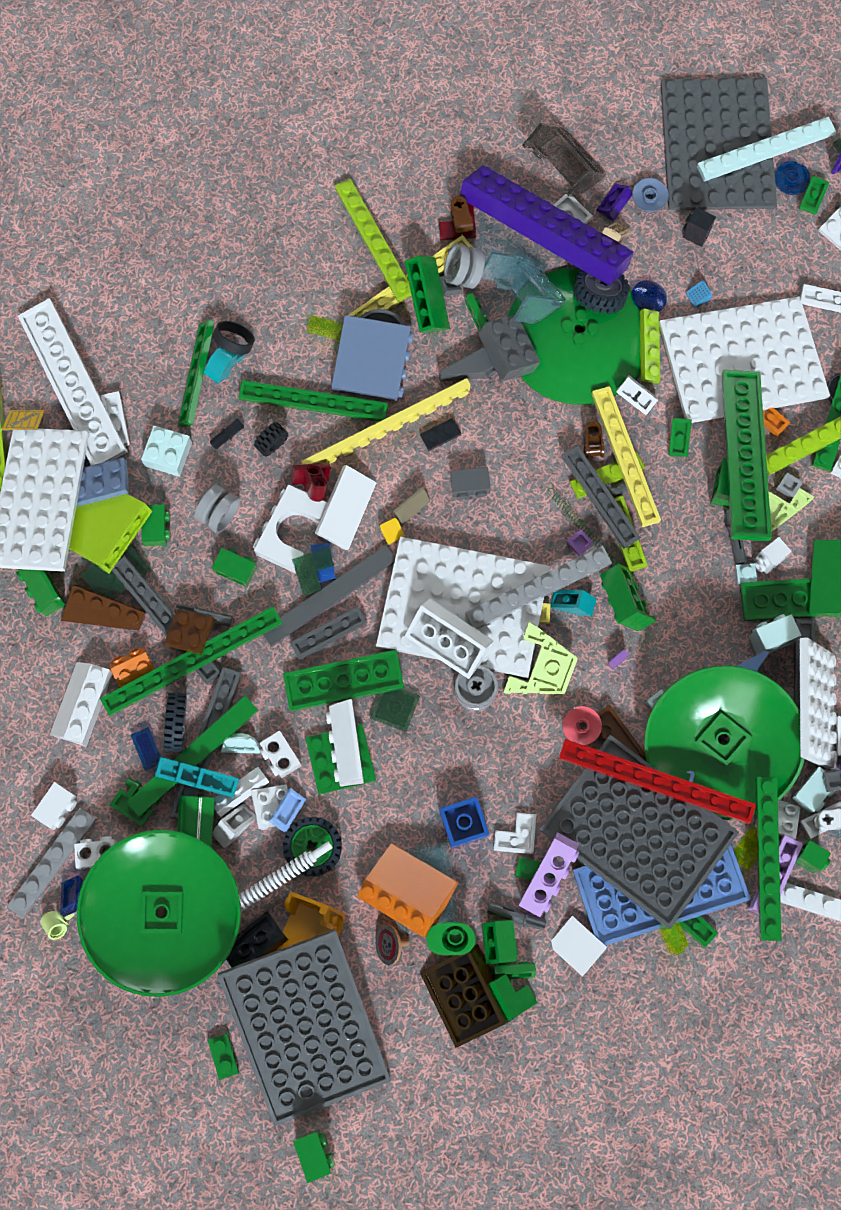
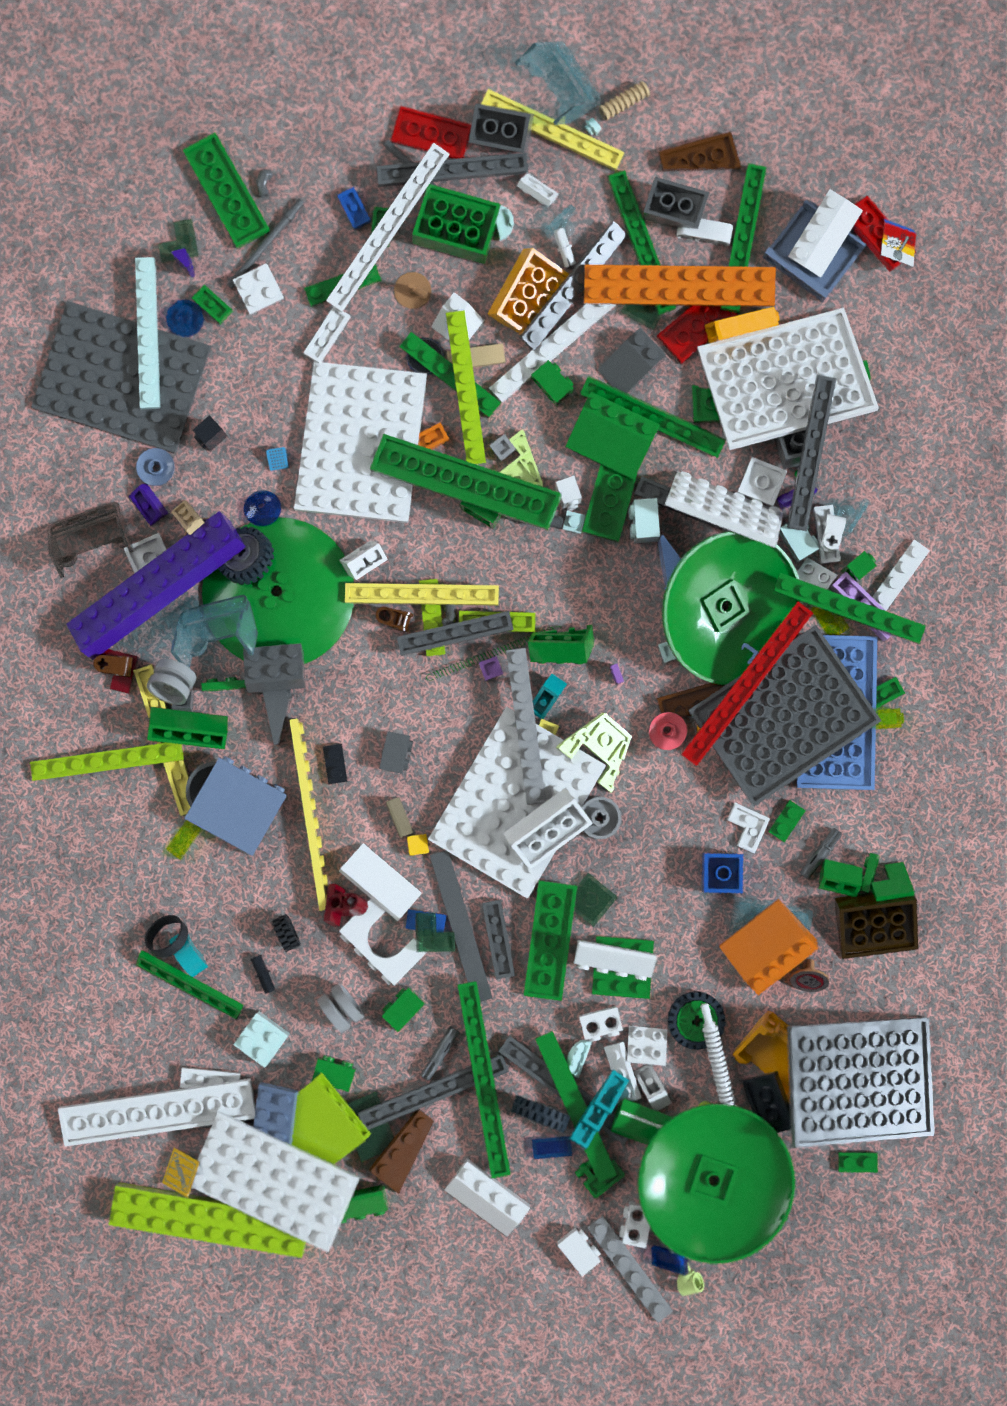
camera: 70 degrees left, 10 degrees up
(131, 666) = (468, 1138): orange bracket -> none
(189, 631) = (455, 1072): reddish brown plate -> none
(287, 810) = (655, 1033): light blue tile -> none
(313, 401) = (258, 878): green plate -> none
(313, 1155) = (972, 1108): green brick -> none
(450, 938) = (826, 922): green piece -> none
(532, 899) = (778, 794): lavender brick -> none
(577, 946) = (866, 807): white sticker -> none
(649, 346) = (315, 527): lime plate -> none
(680, 437) = (419, 533): green plate -> none

